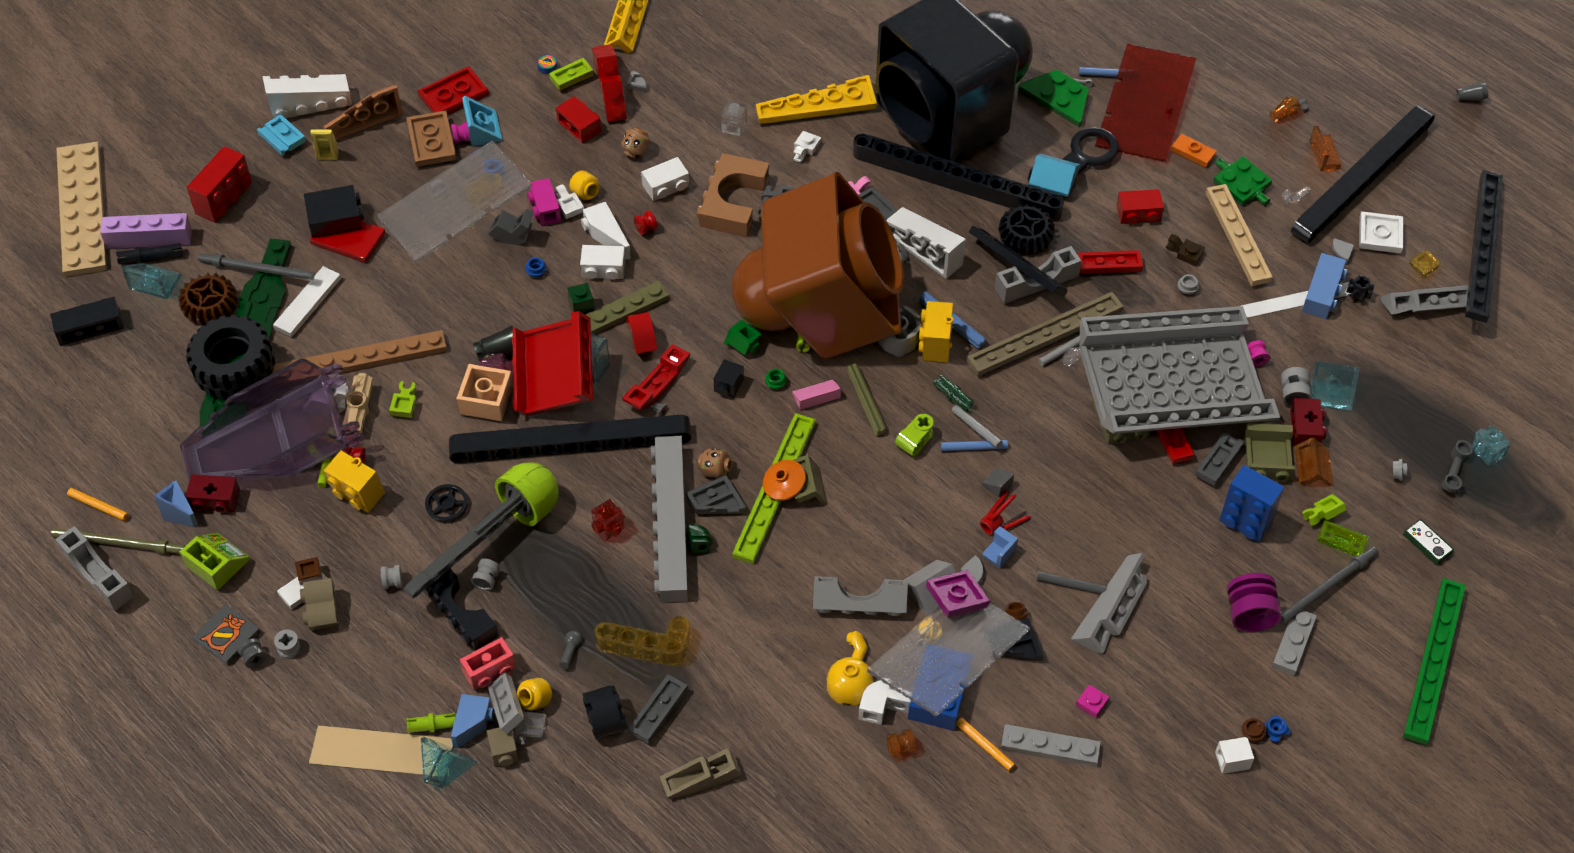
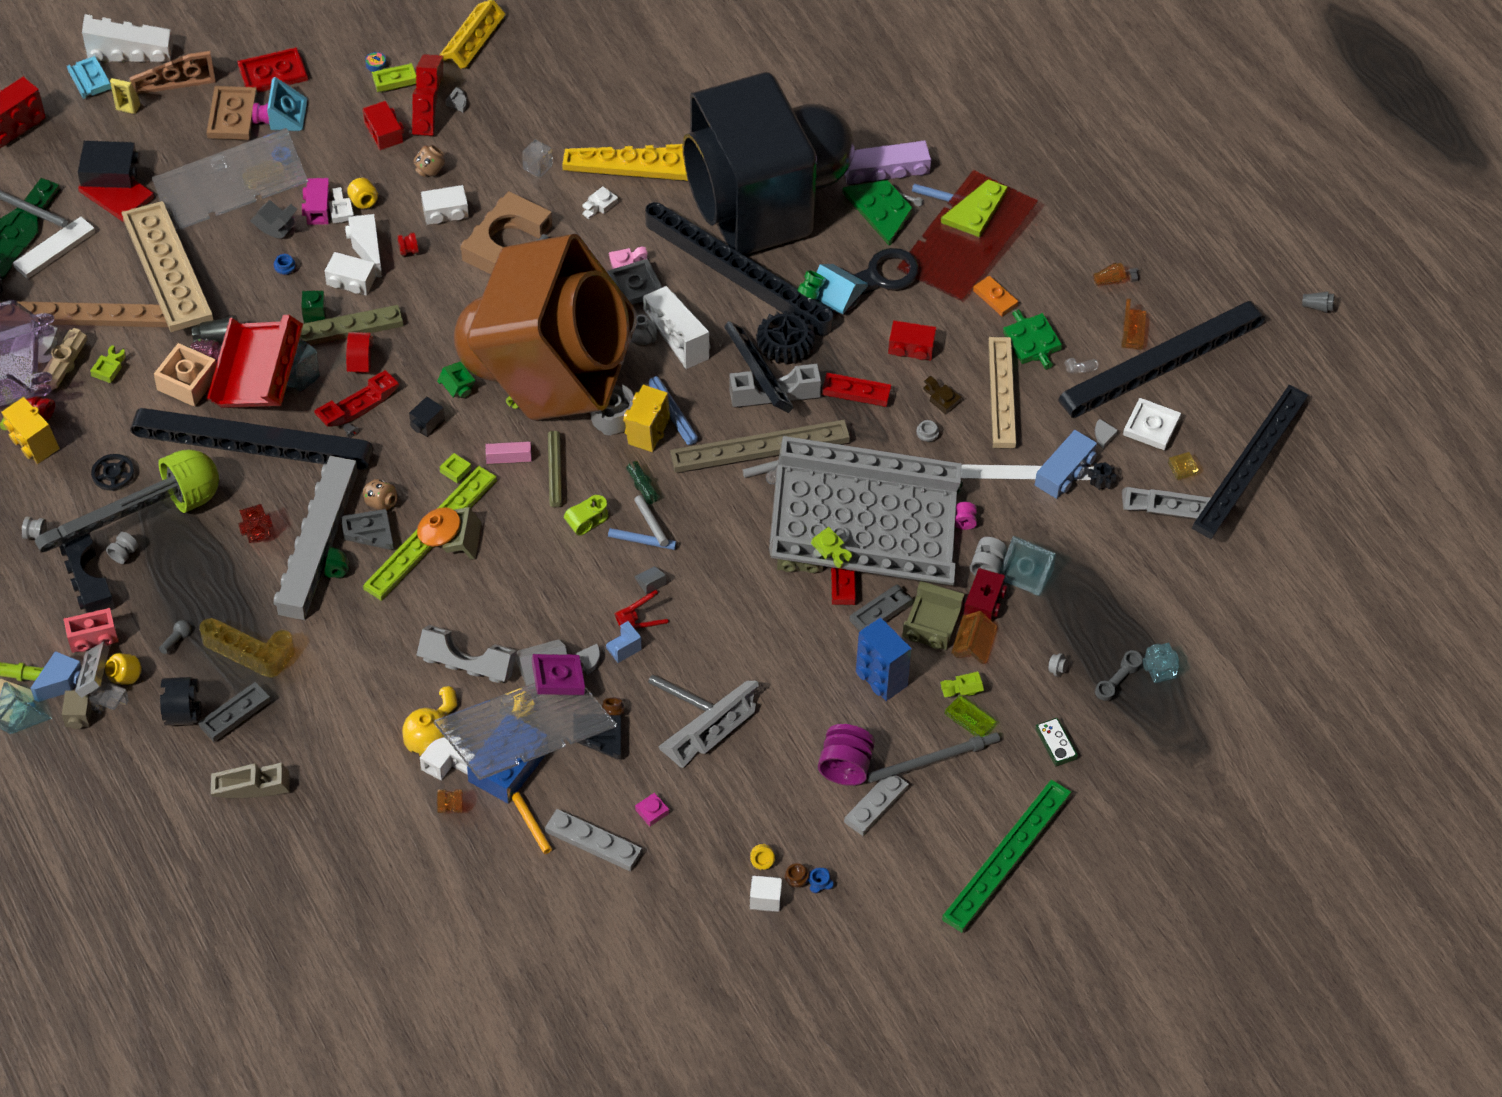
camera: 15 degrees right, 0 degrees up
(426, 294) = (167, 266): none -> tan plate
(774, 420) = (455, 468): none -> lime plate
(775, 374) = (473, 423): green plate -> none
(1034, 175) = (811, 284): none -> green wheel
(1057, 51) = (889, 162): none -> lavender brick
(1146, 77) = (976, 209): none -> lime wing
(1162, 408) = (830, 544): none -> lime plate
(1215, 720) = (762, 856): none -> yellow tile

